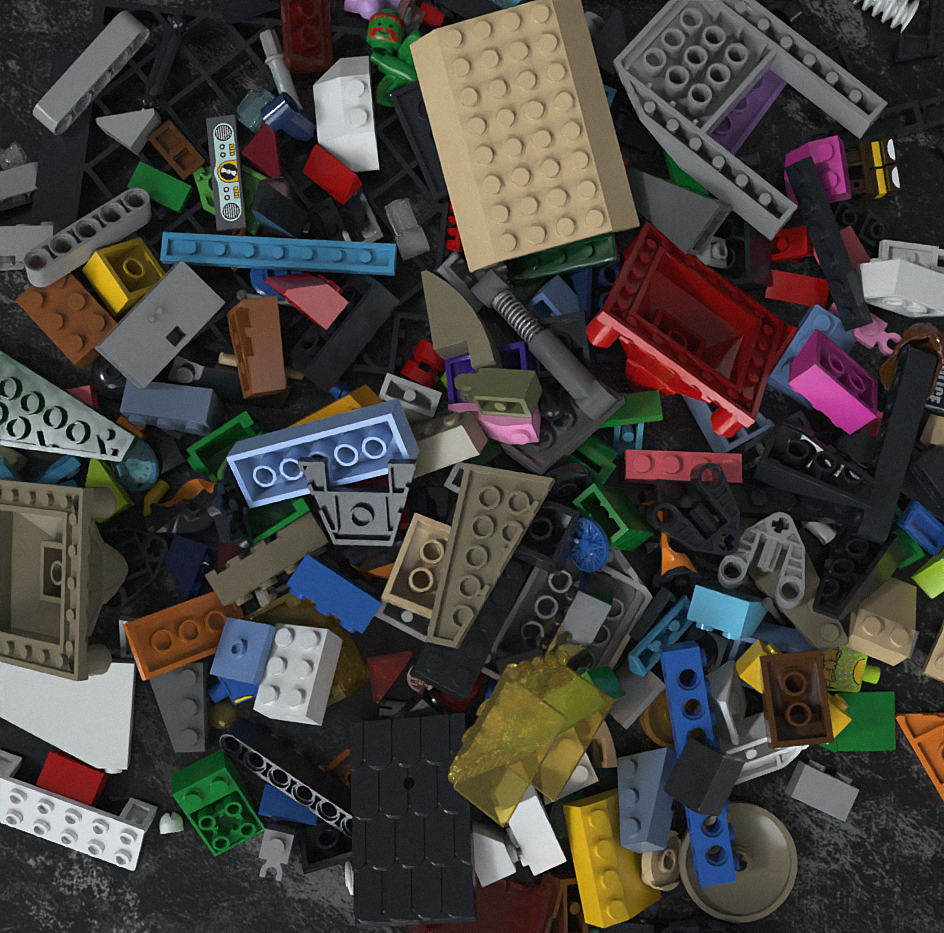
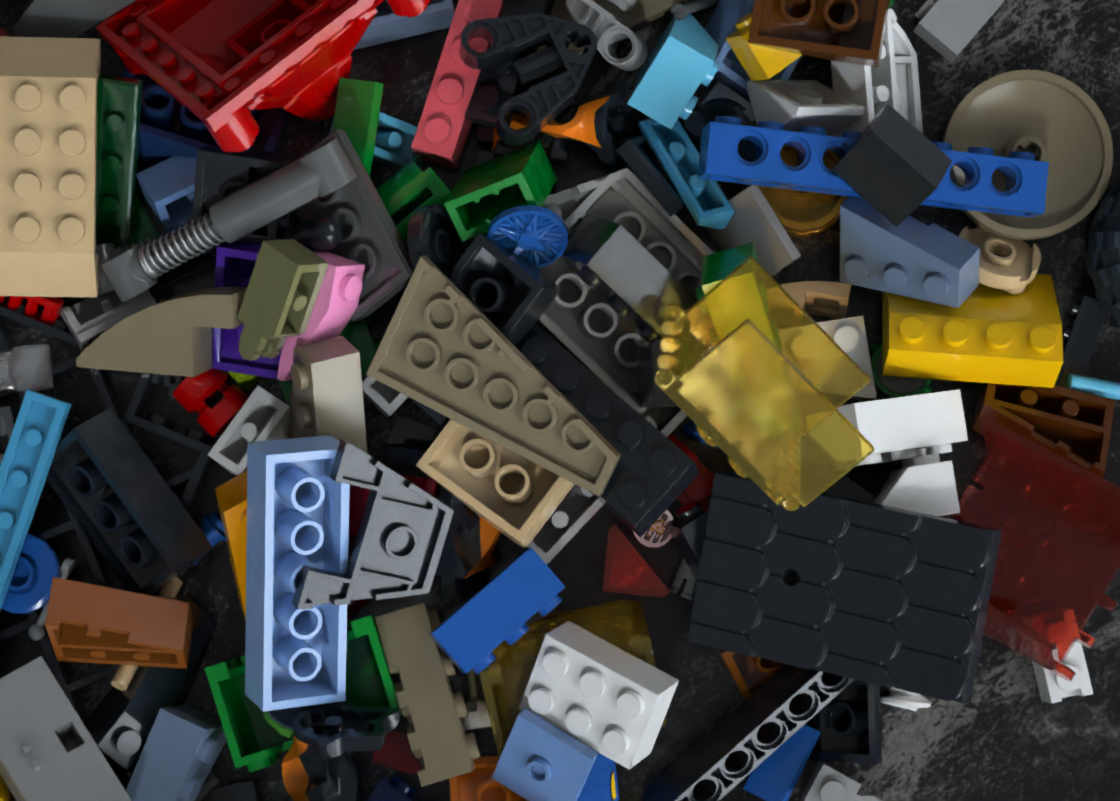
camera: 75 degrees left, 0 degrees up
(310, 295) = (67, 531): slope -> none

